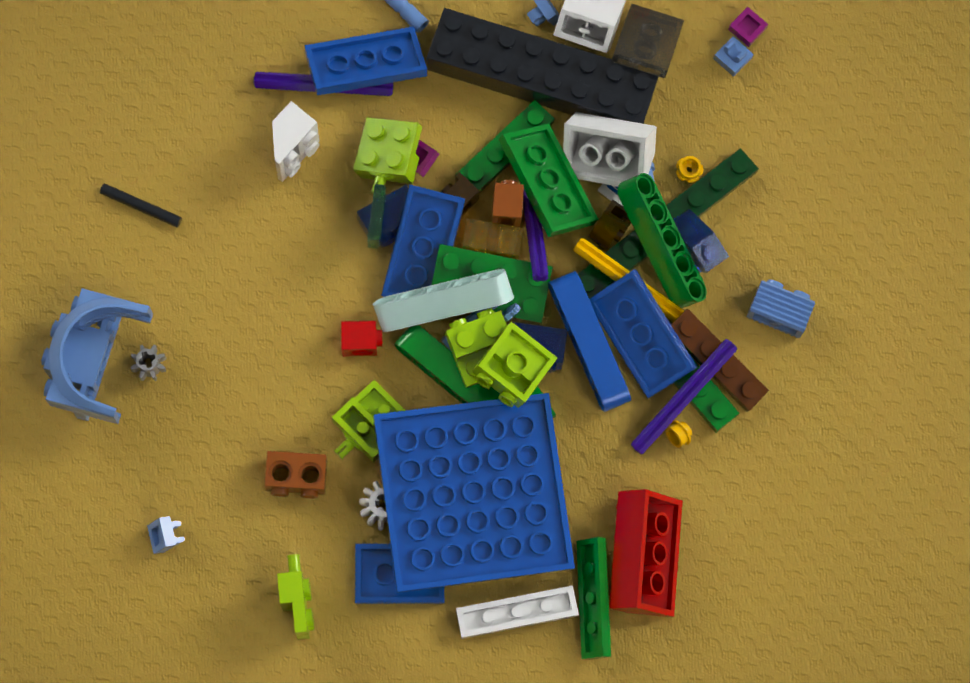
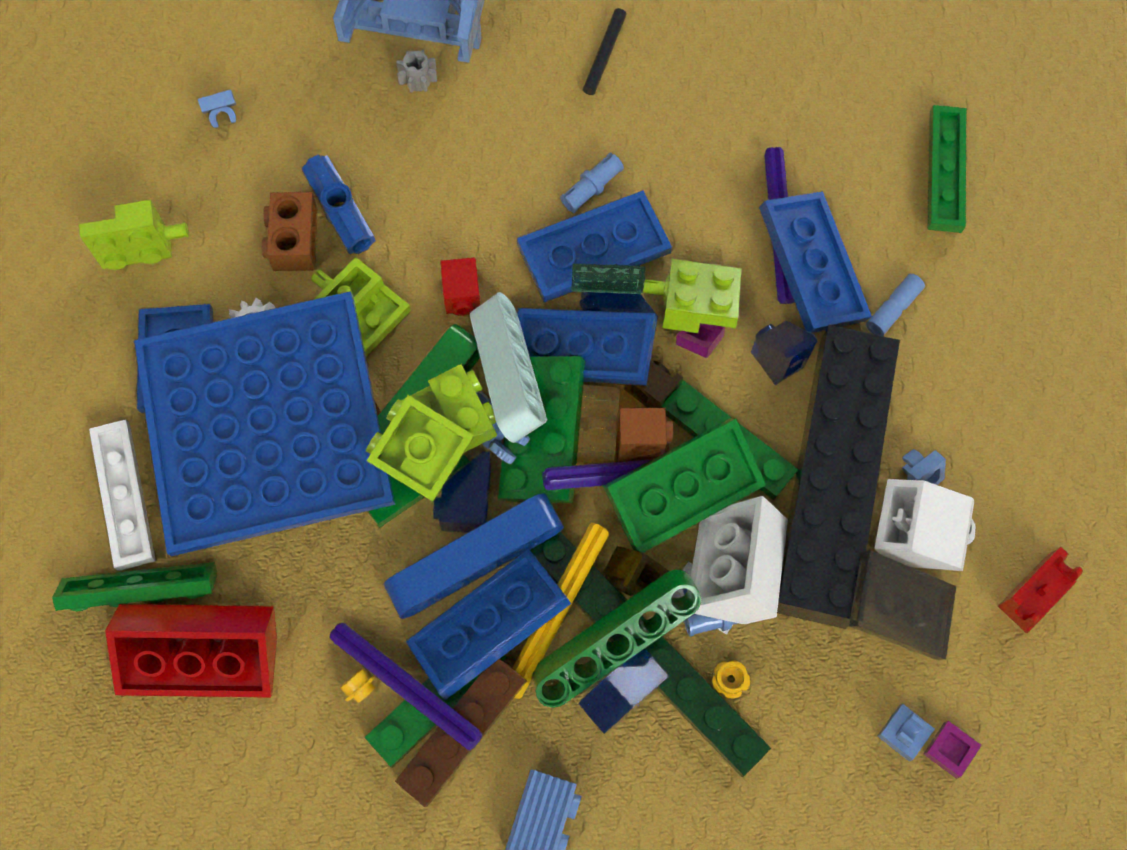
camera: 90 degrees right, 5 degrees down
(272, 227) = (592, 182): none -> medium blue pin
(292, 426) = (345, 218): none -> blue piece
(293, 139) = (696, 183): white slope -> none
(331, 231) = (611, 234): none -> blue plate
(440, 95) = (783, 350): none -> slope

